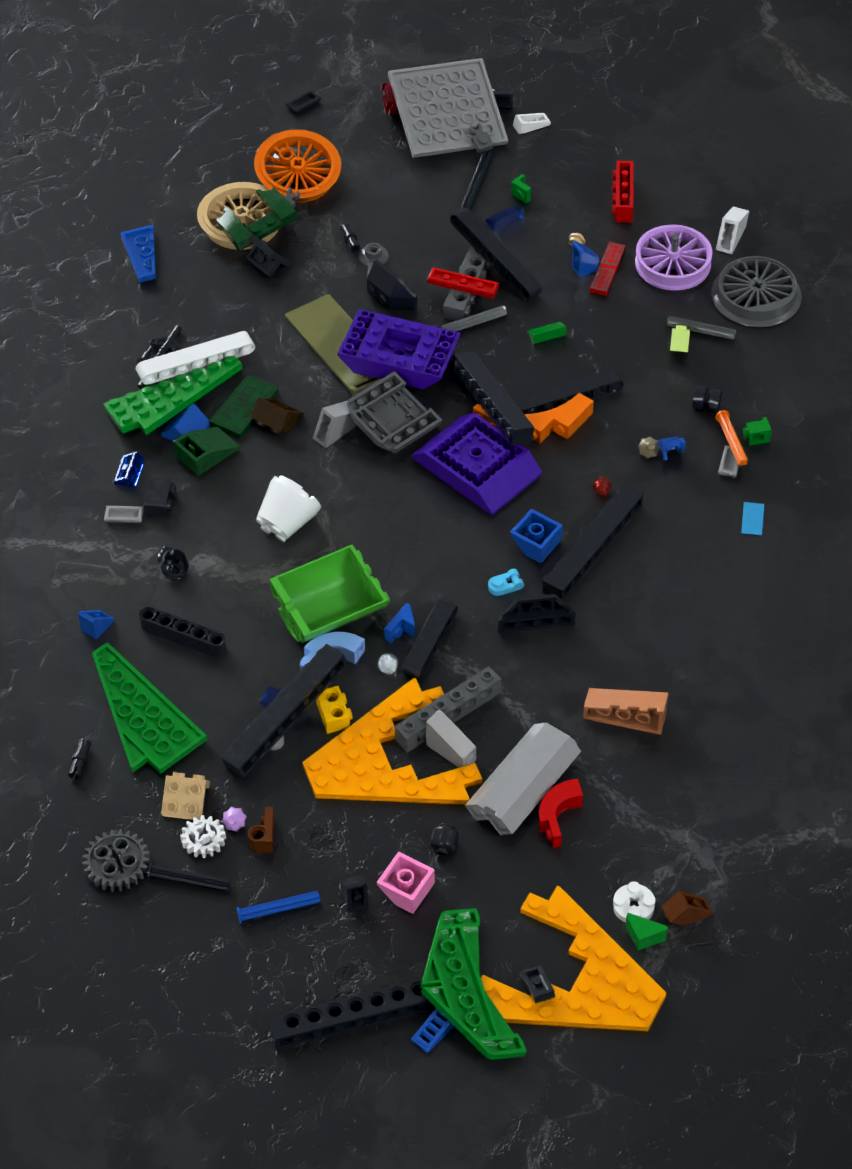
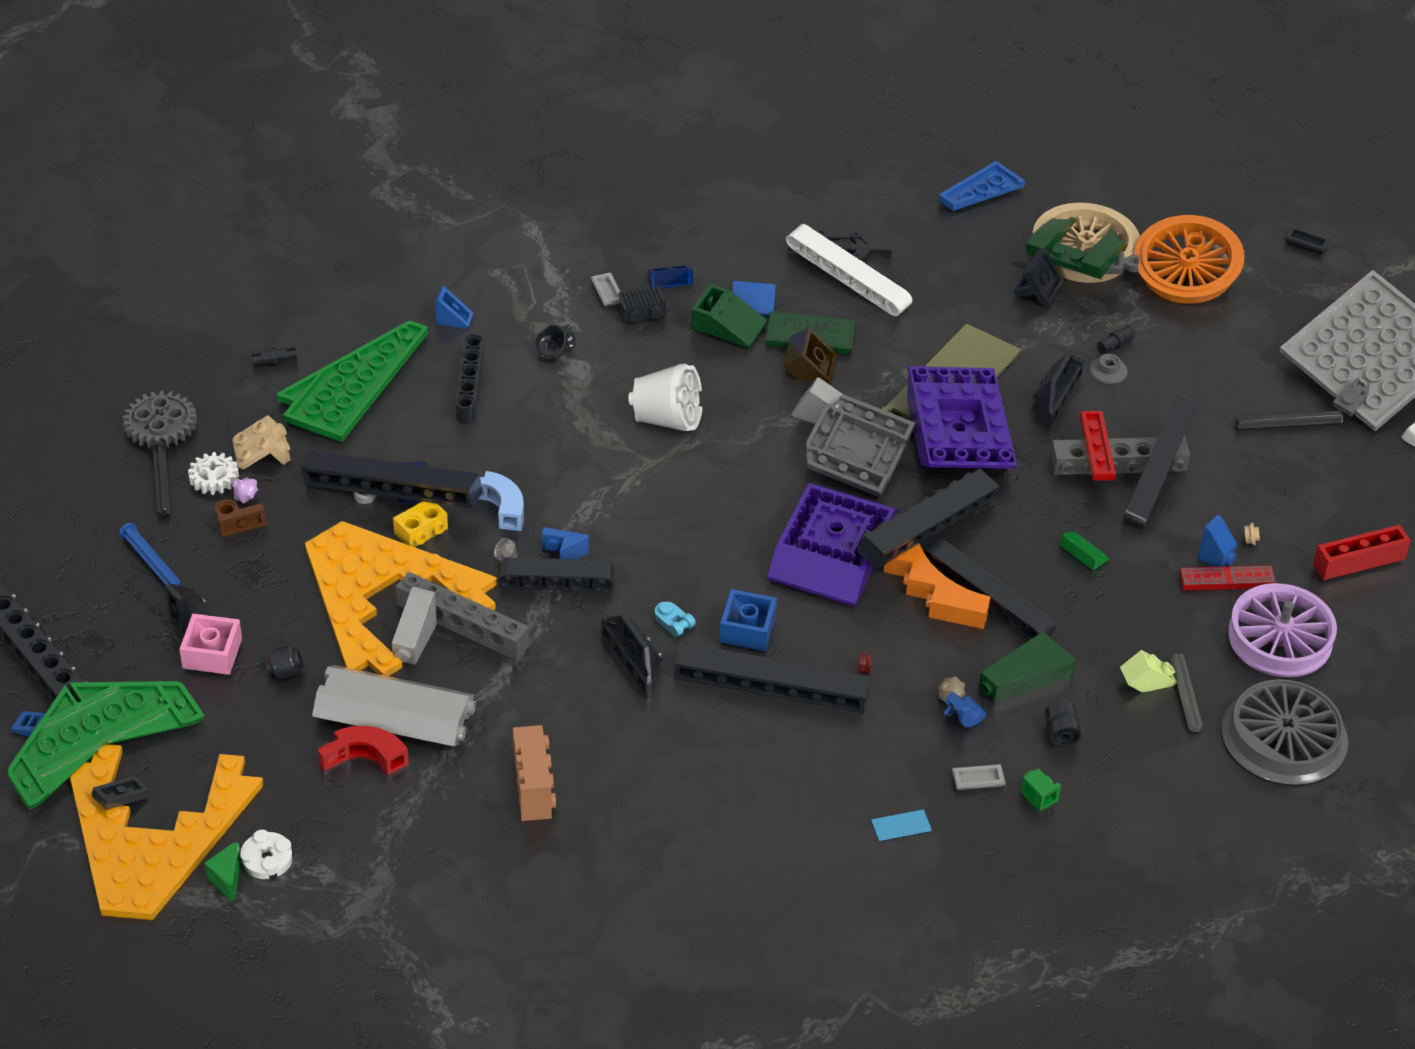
camera: 65 degrees right, 5 degrees down
(164, 400) = (767, 261): green wing -> none
(327, 594) = (563, 465): bright green cylinder -> none
(476, 319) = (1060, 480): dark grey axle -> none
(505, 217) = (1246, 462): clear blue slope -> none
(520, 189) = (1303, 456): green bracket -> none
(646, 399) = (1027, 668): none -> dark green slope
(686, 908) = (272, 903): reddish brown slope -> none
(731, 229) = (1375, 674): white slope -> none
(731, 436) = (1013, 764): orange axle -> none

